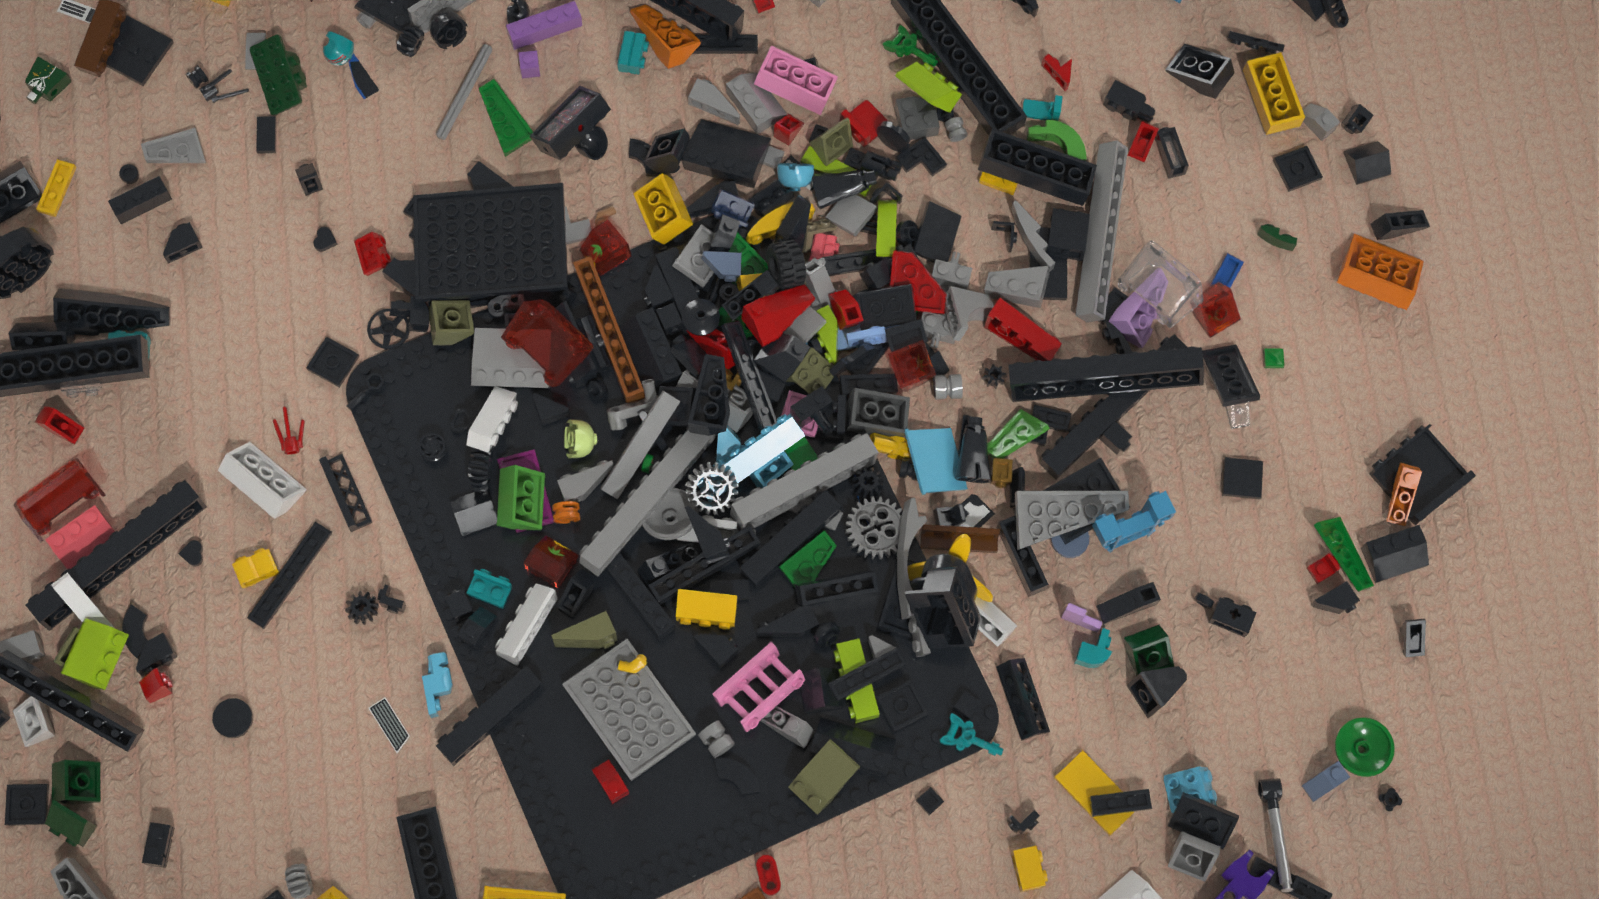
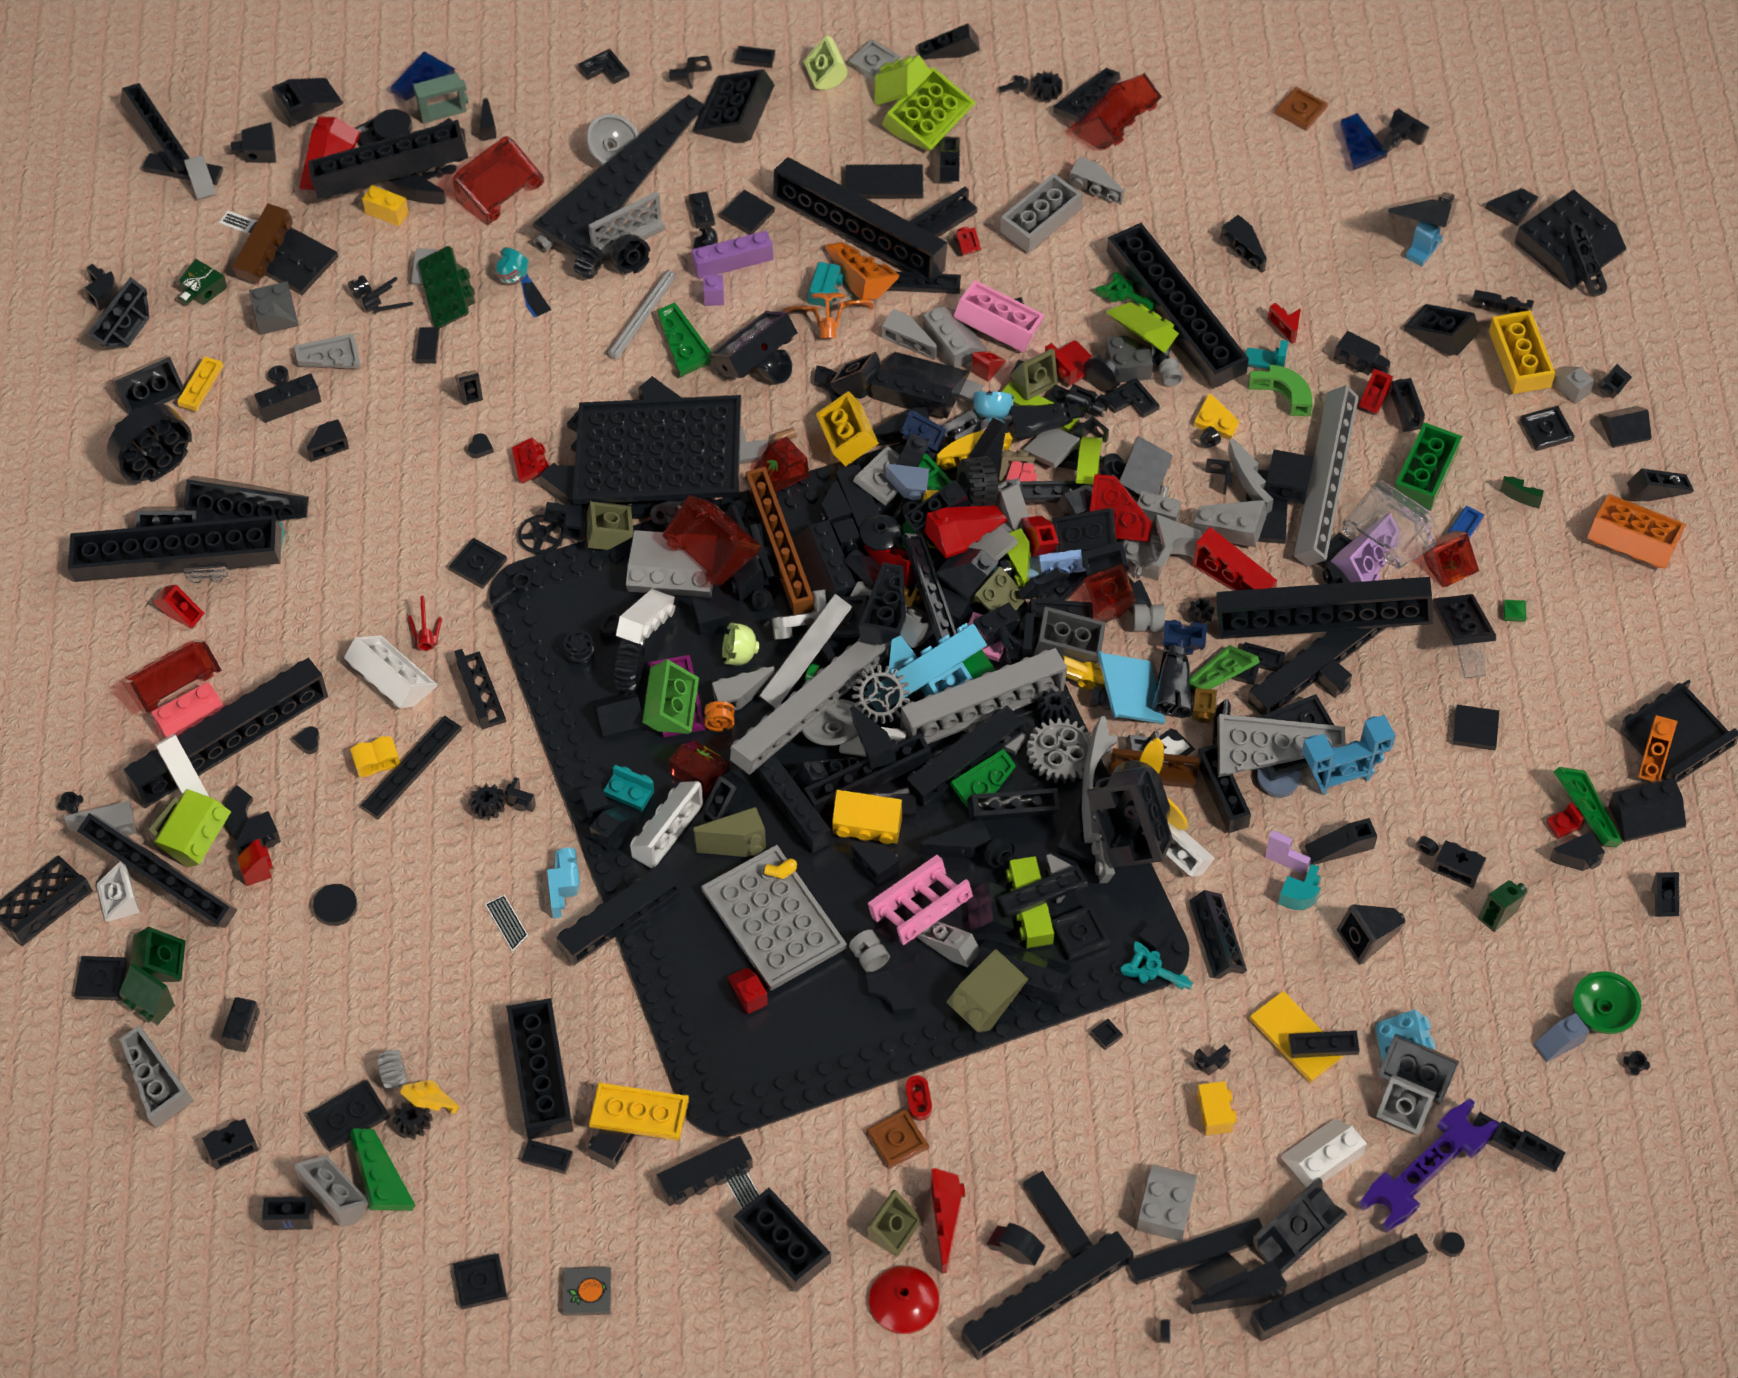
camera: 10 degrees right, 15 degrees down
(117, 104) = (273, 308): none -> dark grey slope
(637, 97) = (828, 326): none -> orange plant
(981, 404) = (1189, 637): none -> dark blue cylinder
(996, 194) = (1212, 437): none -> black tile
(1037, 167) = (1258, 408): black brick -> none
(1149, 650) = (1363, 888): dark green slope -> none
(1192, 217) = (1428, 465): none -> green brick
(1271, 792) = (1497, 1046): flat silver piece -> none
(1272, 655) = (1509, 898): none -> dark green torso

